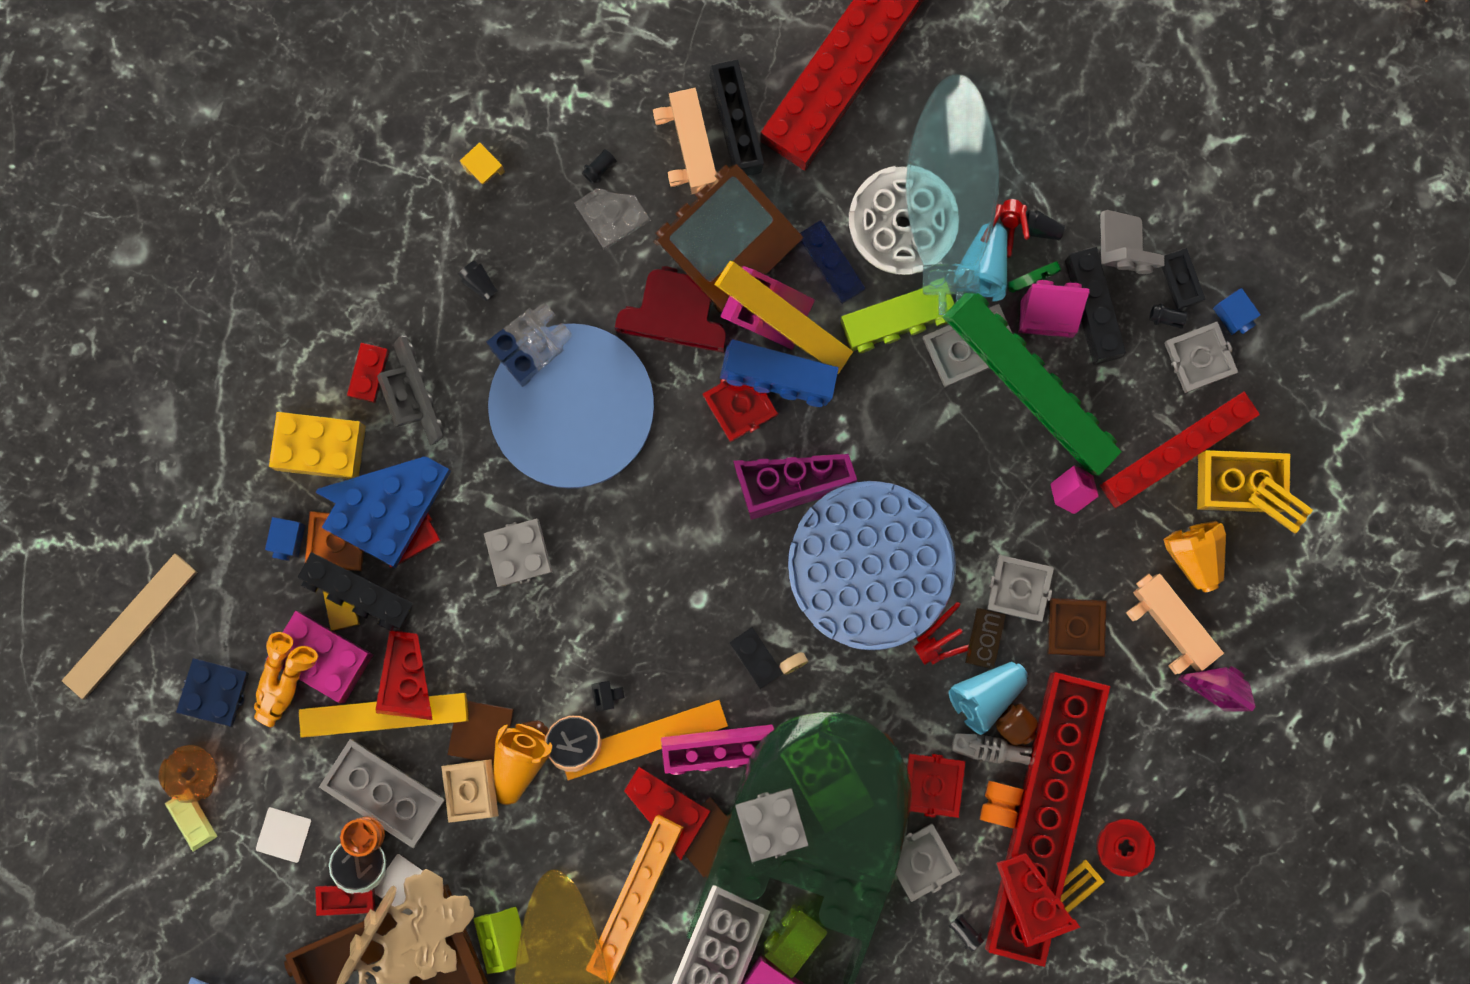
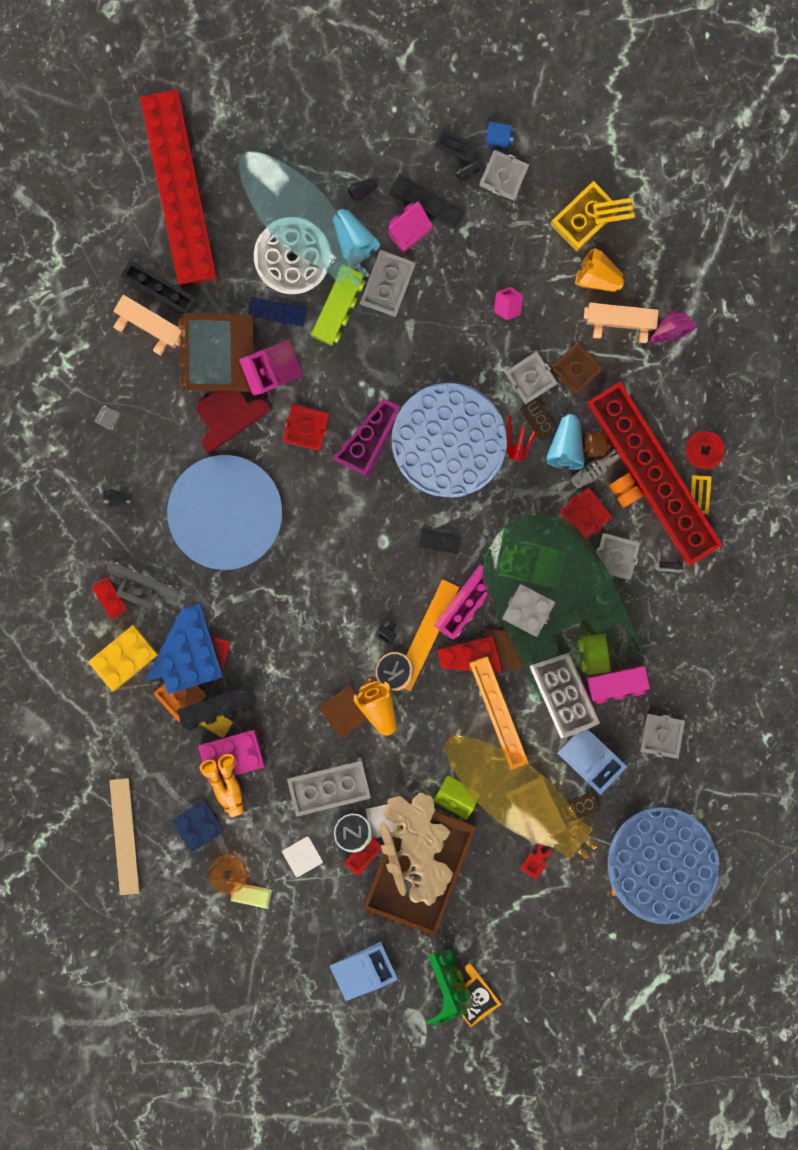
camera: 50 degrees left, 5 degrees up
(284, 538) = (155, 718): blue brick -> none
(362, 836) = (341, 816): orange wheel -> none
(363, 717) = (290, 751): yellow tile -> none
(403, 679) = (282, 724): red wing -> none
(470, 791) = (369, 743): tan tile -> none
(481, 164) = (58, 440): yellow panel -> none
(518, 552) = (273, 609): light grey plate -> none
(528, 344) = (174, 497): clear hips -> none
(554, 193) = (107, 417): none -> clear tile
(598, 166) = (115, 382): black pin -> none
(611, 215) = (147, 399): clear plate -> none
(779, 373) = (309, 393): blue brick -> none
(782, 316) = (285, 364): yellow tile -> none
(793, 663) = (459, 526): tan tile -> none
(1011, 215) = (341, 198): red plant -> none
(1031, 382) = (436, 273): green brick -> none
(1034, 276) = (384, 219): green tile -> none
(1034, 905) = (688, 521): red wing -> none
(1124, 244) = (410, 158): light grey bracket -> none
(1179, 449) = (539, 232): red brick -> none

